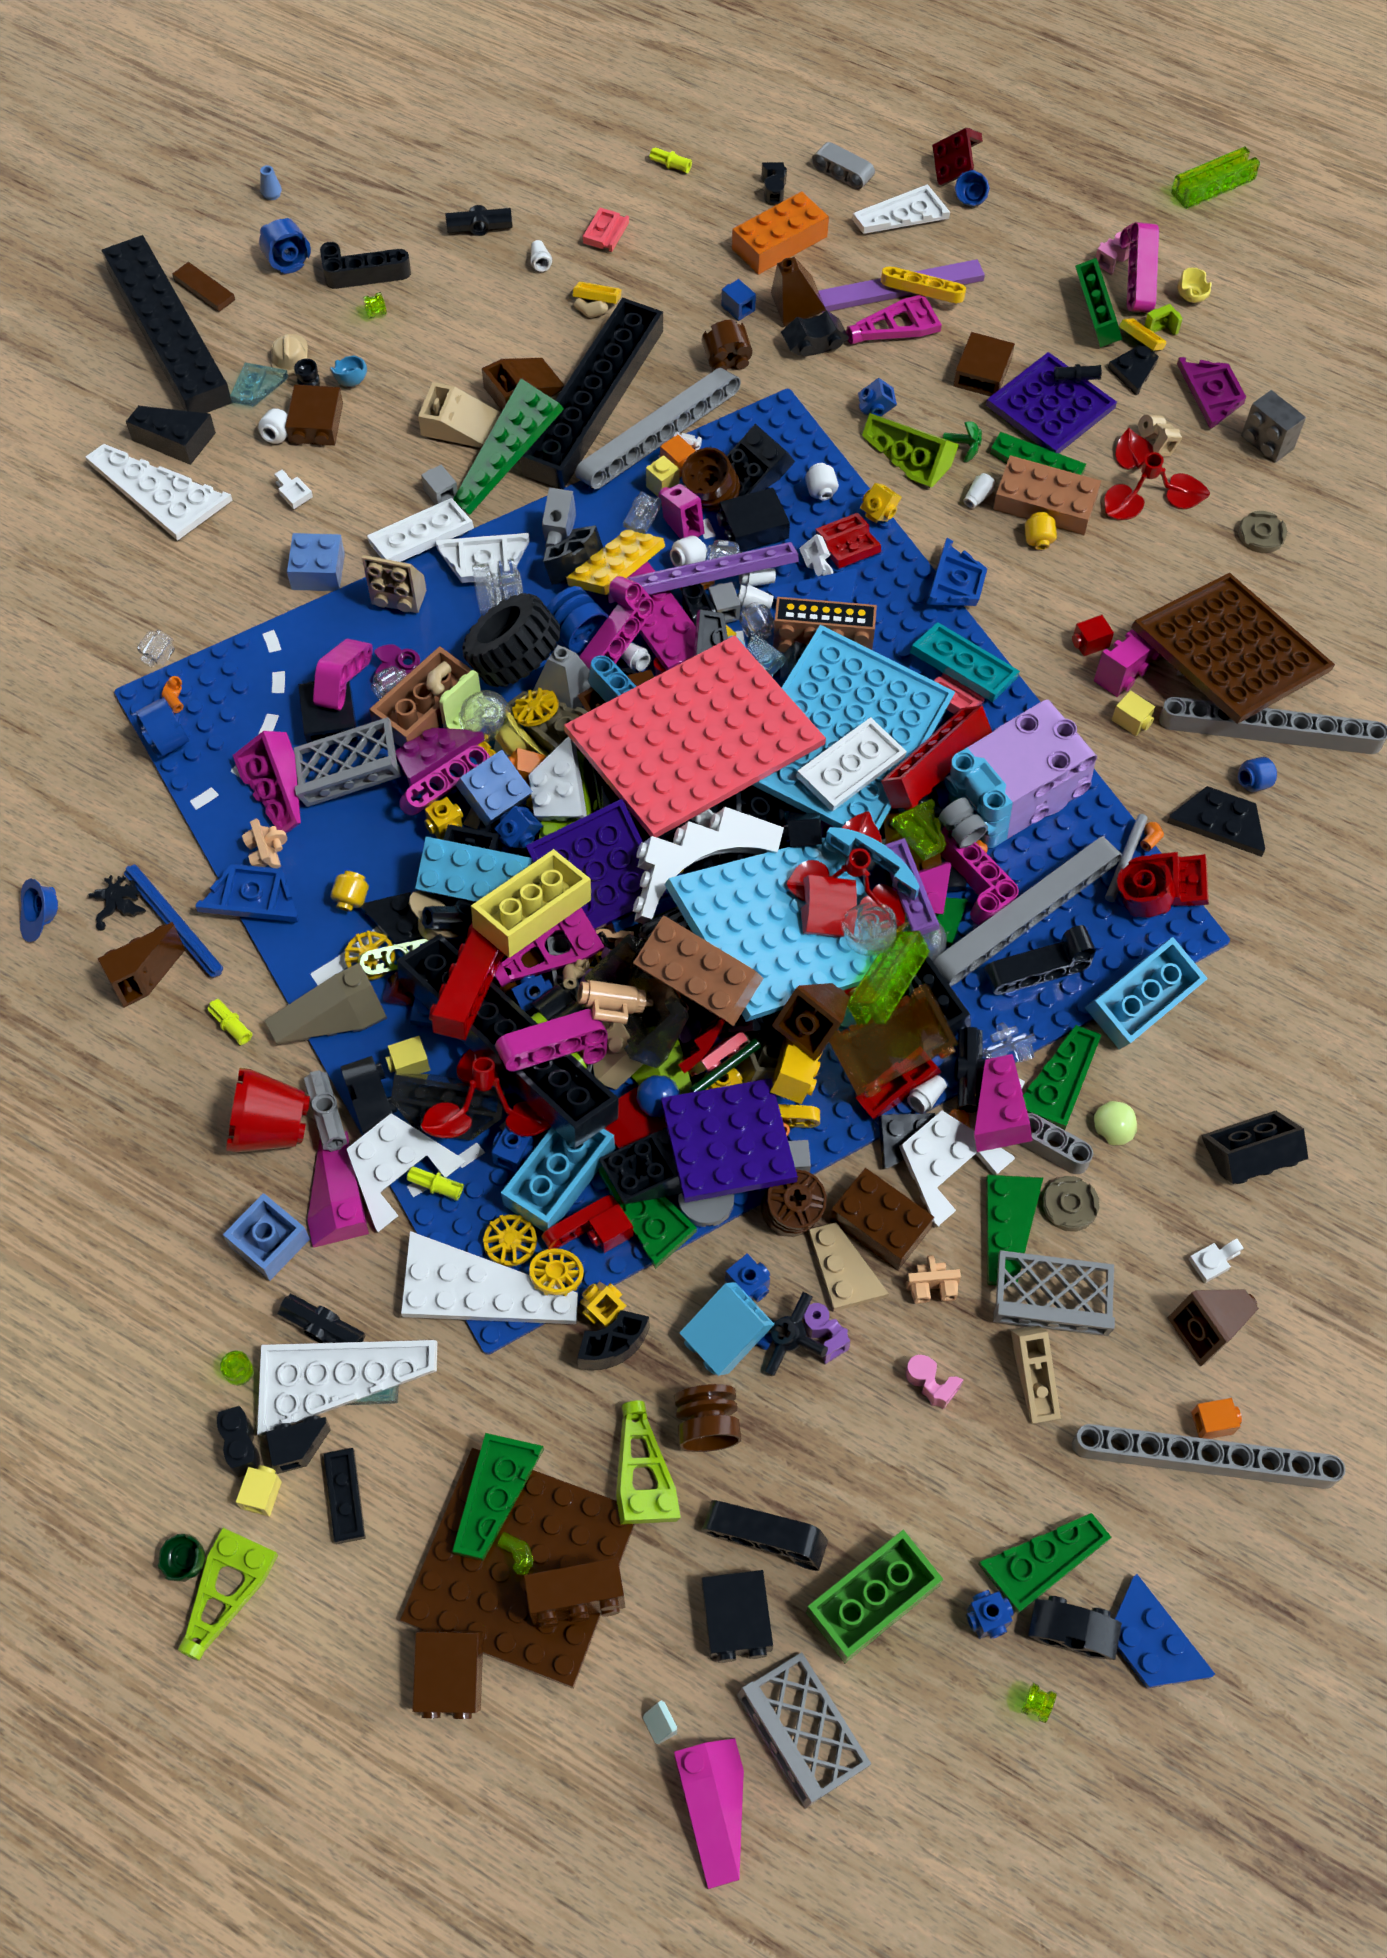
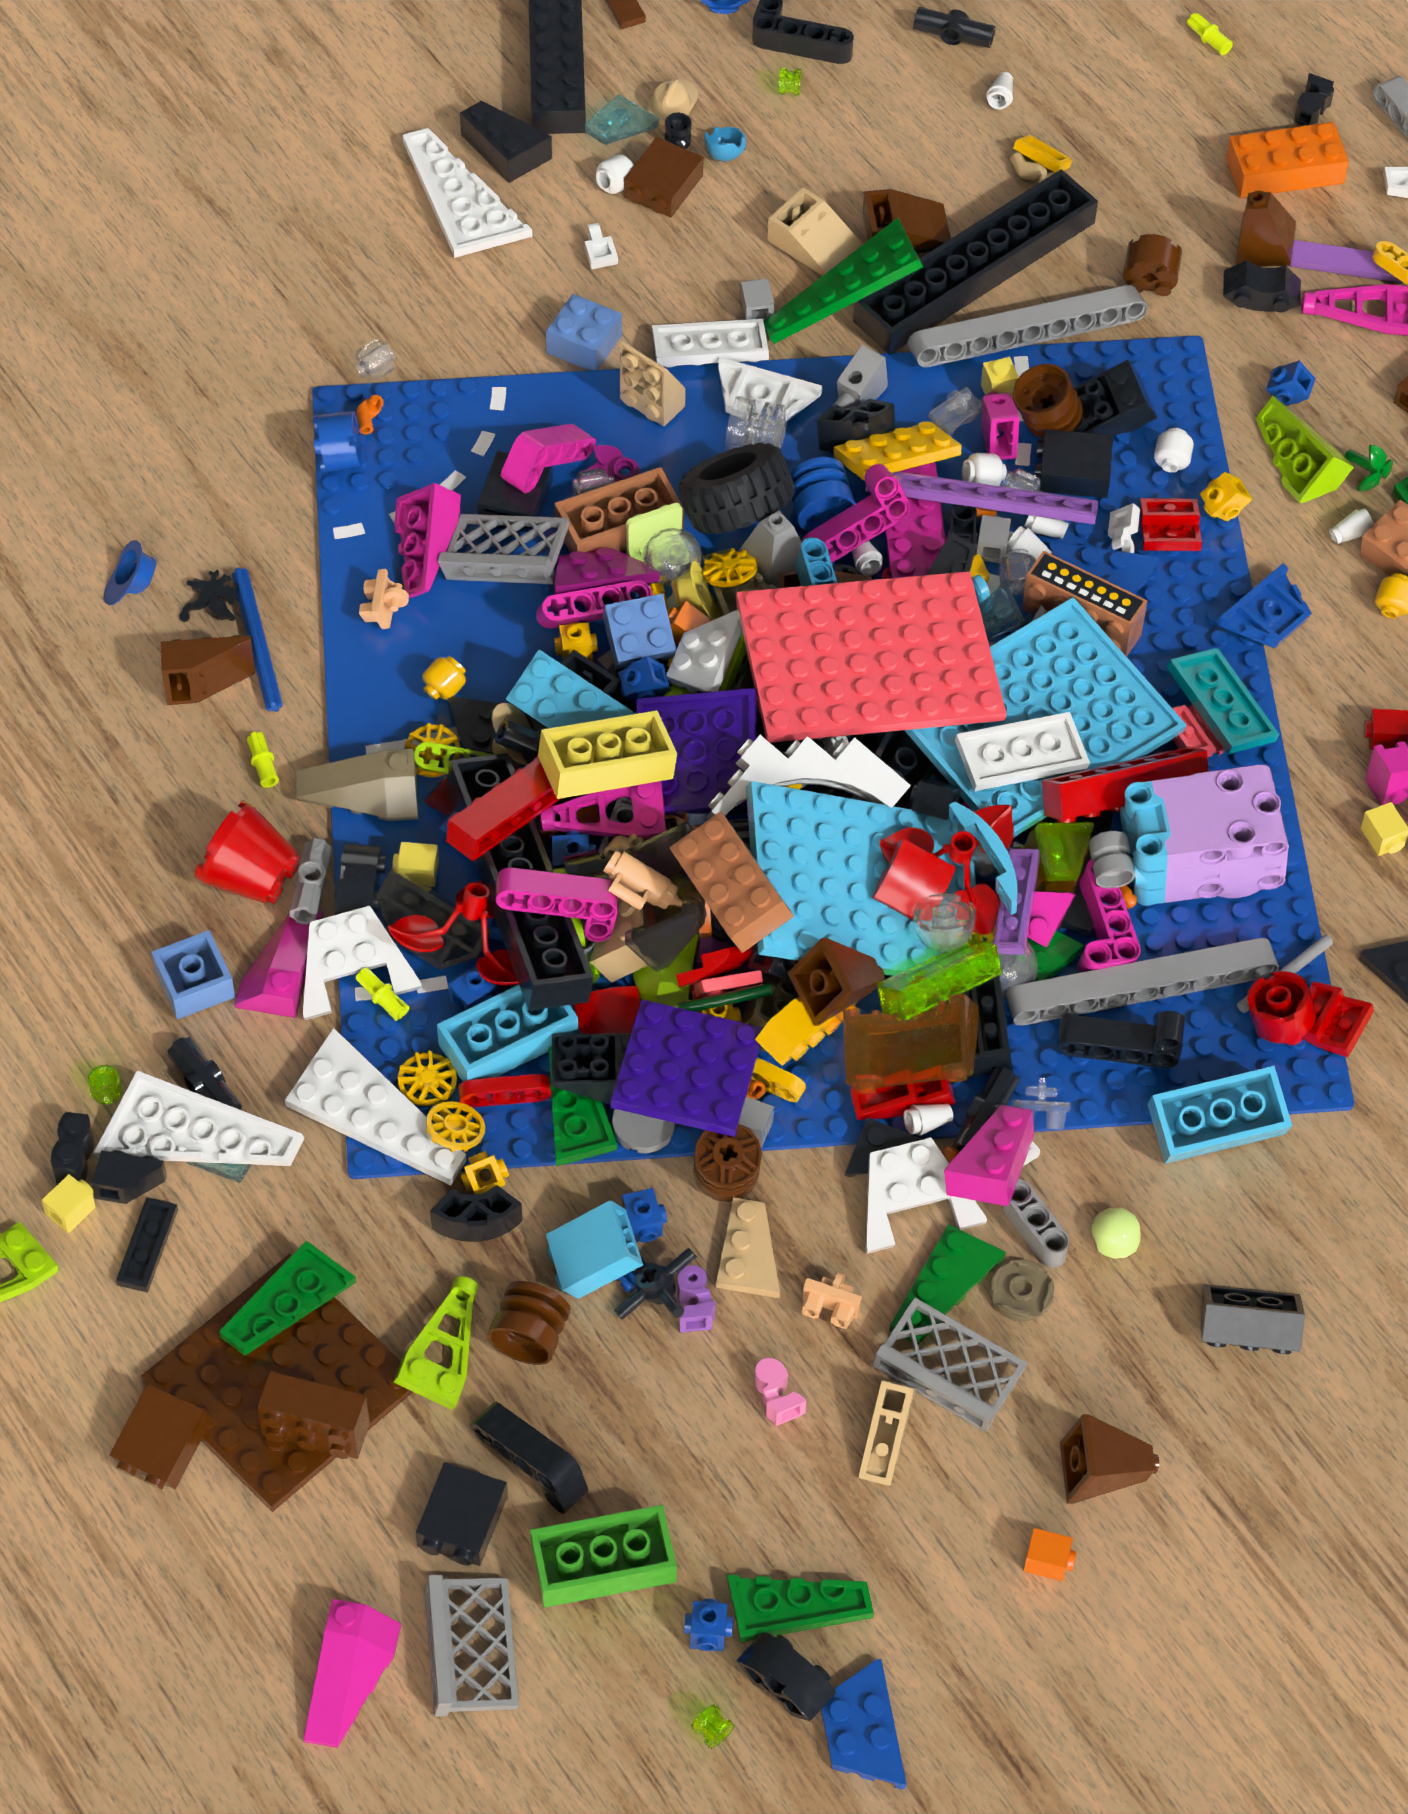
camera: 25 degrees right, 5 degrees down
(250, 893) = (344, 642): blue wing -> none
(435, 677) = (638, 495): tan arm -> none
(520, 1550) = (284, 1360): clear neon green arm -> none
(605, 229) = (1091, 87): coral plate -> none
(610, 1228) = (530, 1108): red brick -> none
(651, 1092) = (645, 989): blue hair -> none
(660, 1723) = (337, 1576): light aqua slope -> none
(676, 451) = (1028, 355): orange brick -> none
(691, 440) = (1051, 352): white piece -> none
(738, 299) = (1197, 218): blue brick -> none
(881, 1218) = (812, 1218): reddish brown brick -> none
(1061, 1079) = (1083, 1165): green wing -> none
(1154, 835) = (1331, 962): orange arm -> none
(1213, 1262) = (1138, 1408): white plate -> none
(1220, 1450) = (1025, 1599): light grey beam -> none

